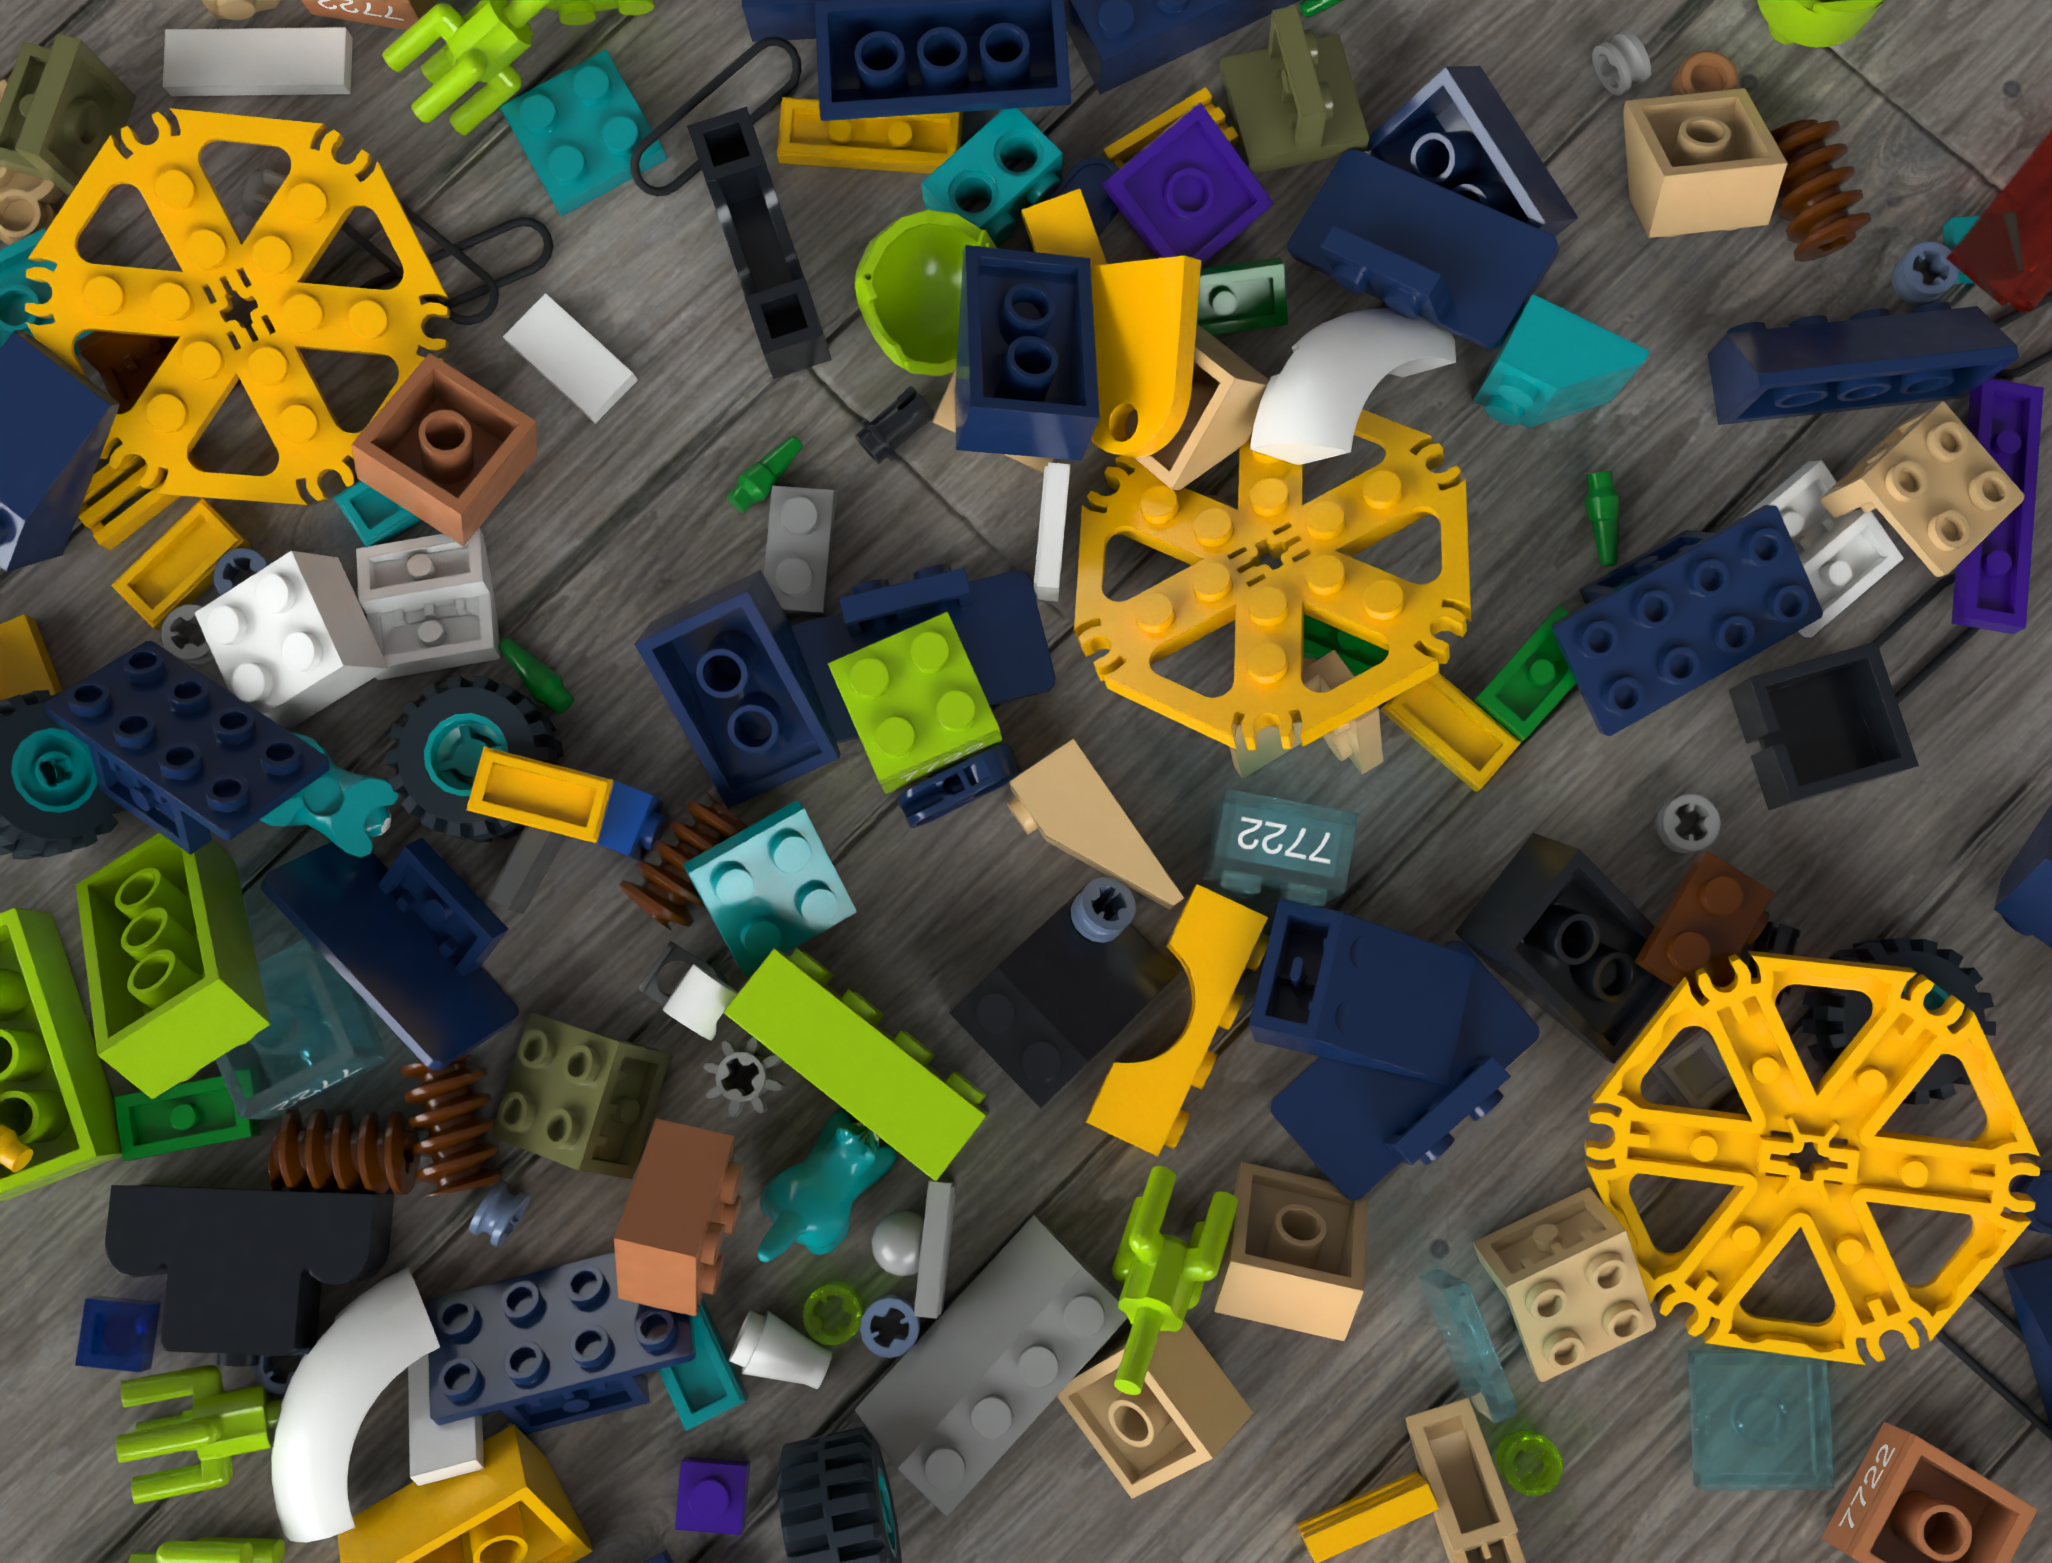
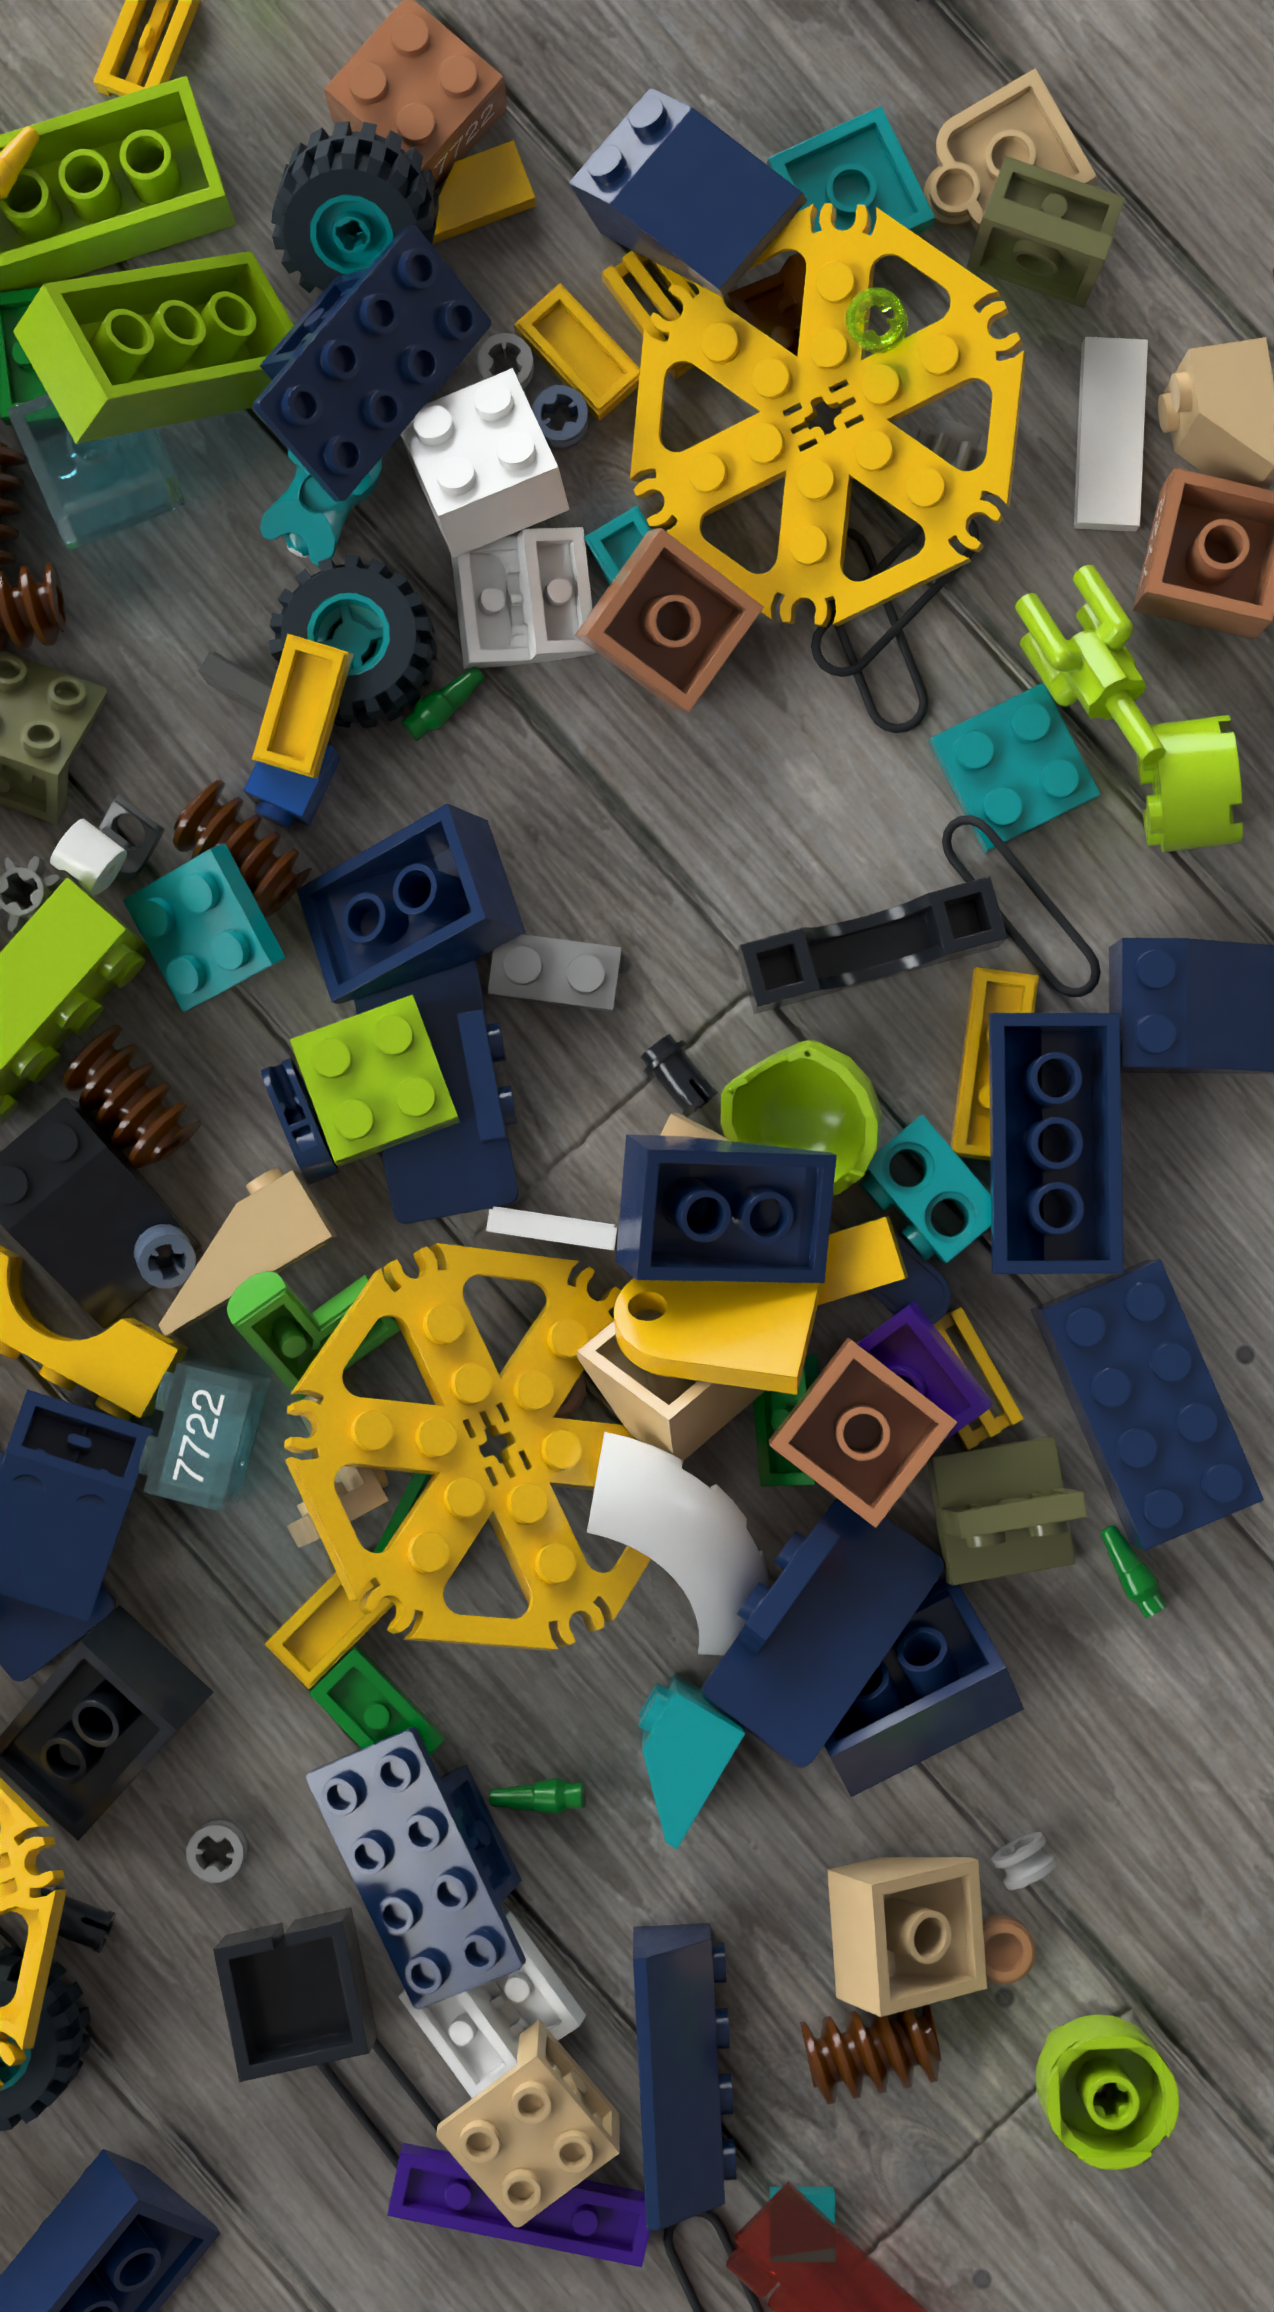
camera: 90 degrees right, 5 degrees up
(120, 247) = (884, 301): none -> clear neon green bush
(403, 942) = (173, 566): dark blue bracket -> none
(570, 358) = (771, 747): white tile -> none
(759, 478) = (634, 938): green piece -> none
(947, 956) = (127, 1100): none -> reddish brown piece
(1175, 768) = (286, 1330): none -> bright green brick
(1231, 206) = (861, 1432): none -> nougat brick
(1706, 923) = (104, 1855): reddish brown bracket -> none
(1909, 283) = (767, 2143): sand blue bush -> none

